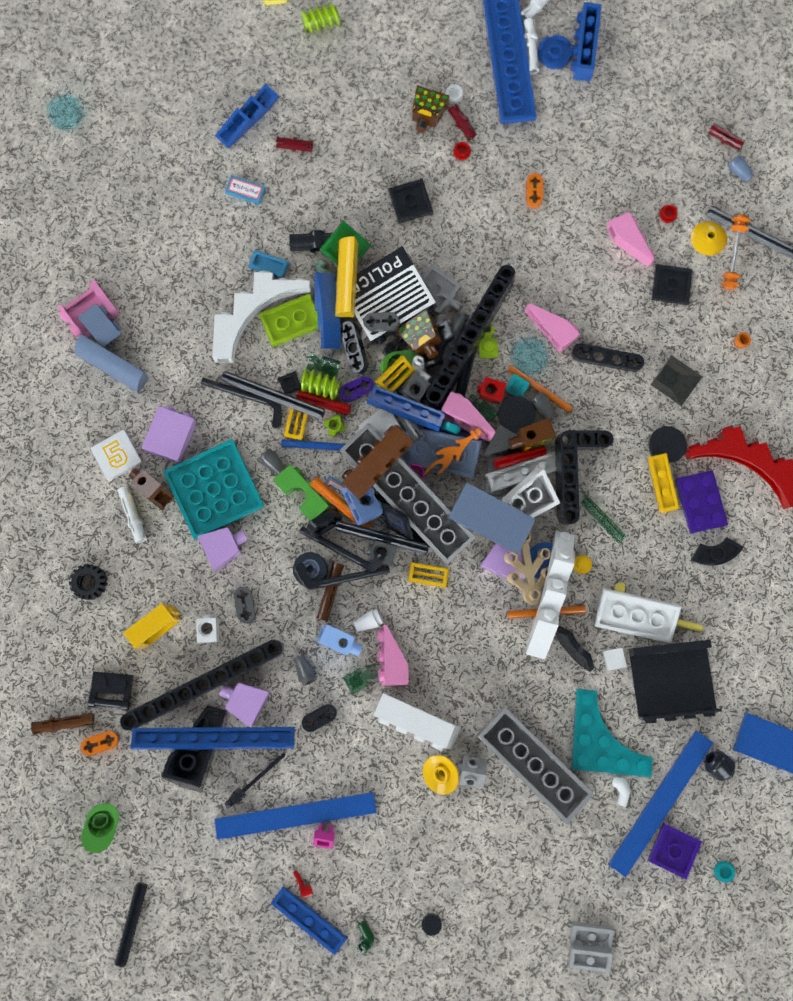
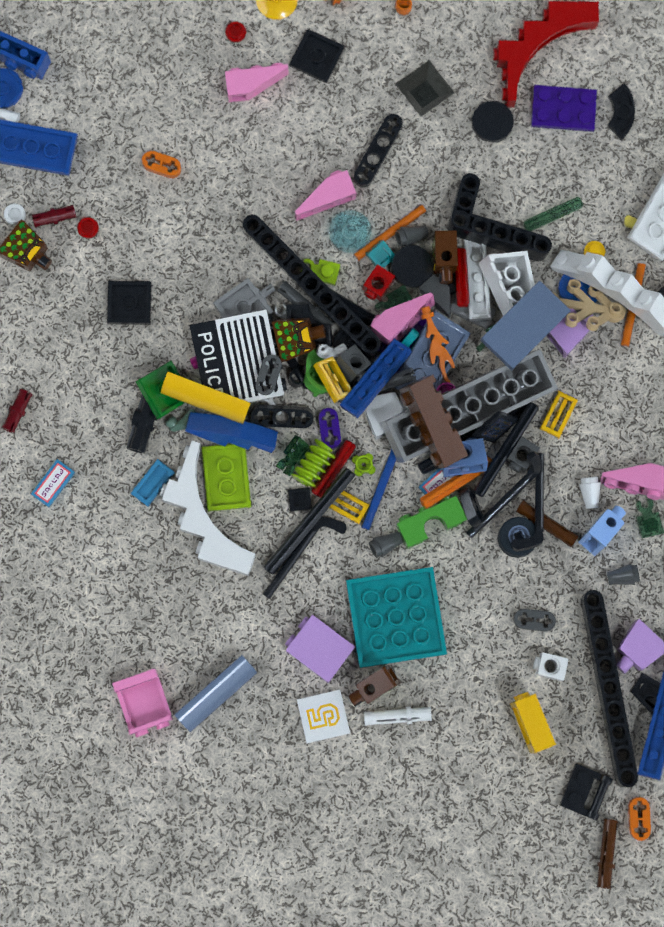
camera: 75 degrees left, 0 degrees up
(80, 573) = (473, 784): black tyre -> none
(99, 325) = (169, 691): sand blue brick -> none
(222, 546) = (464, 625): lavender torso -> none
(663, 483) = (532, 140): yellow tile -> none

